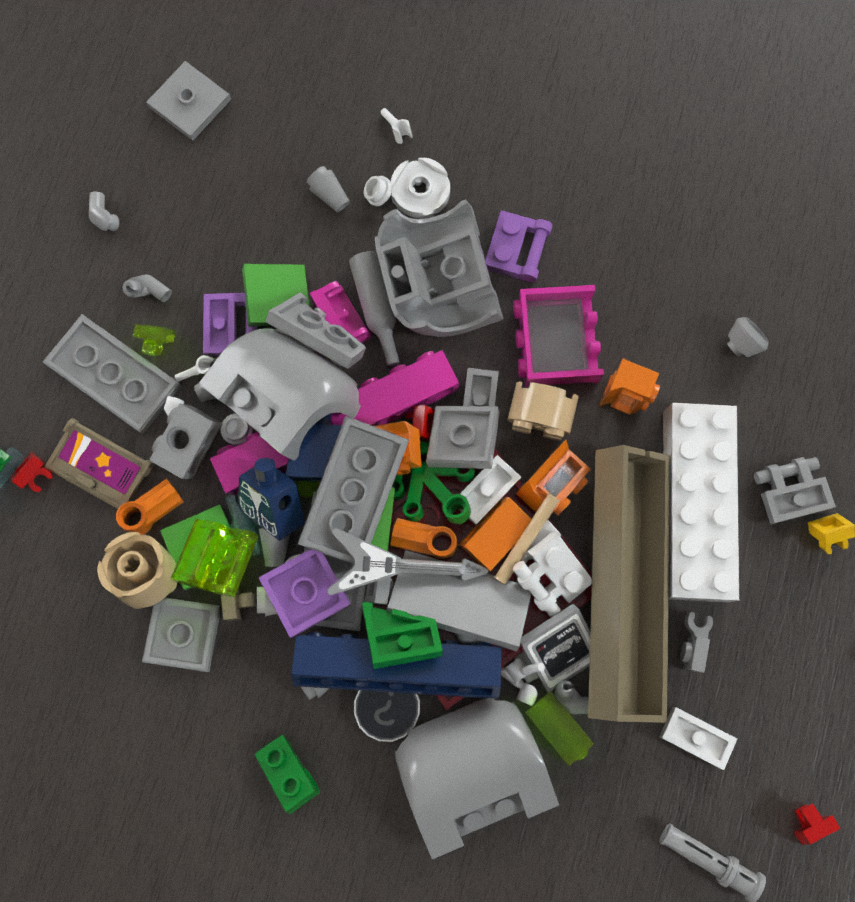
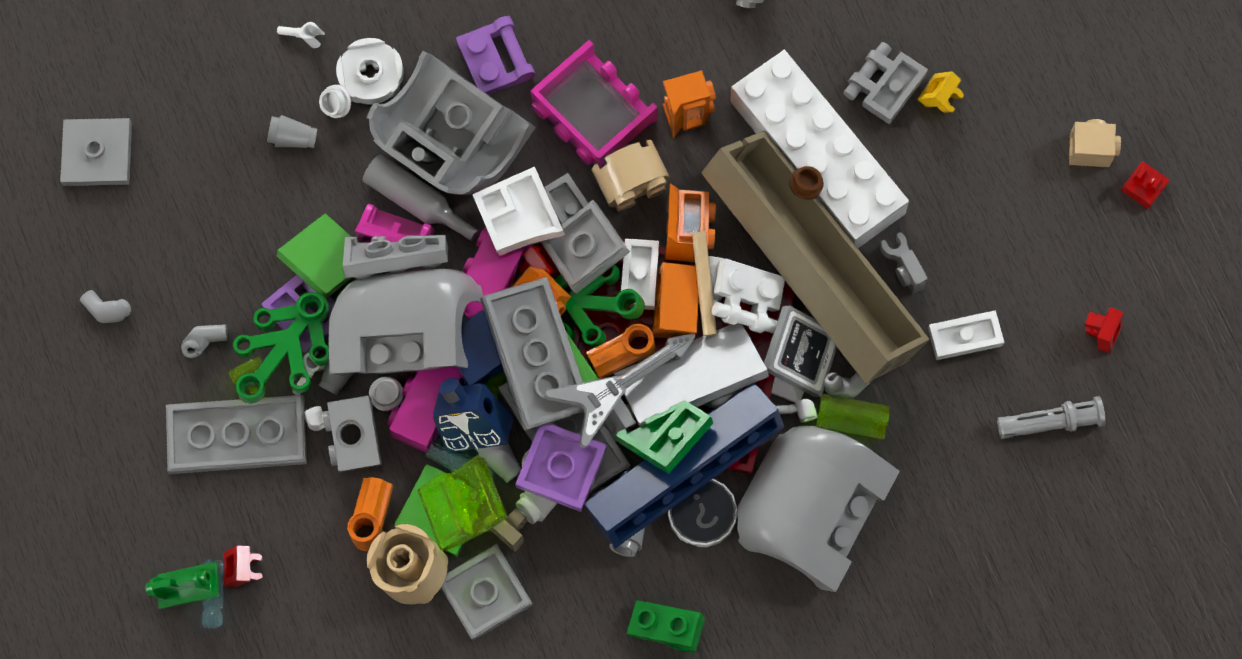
camera: 35 degrees left, 5 degrees down
(89, 457) = (289, 514): door -> none
(192, 336) = (284, 343): none -> green plant
(434, 372) = (518, 212): none -> white plate
(518, 669) = (782, 395): white hand -> none
(669, 523) = (806, 183): none -> reddish brown plate

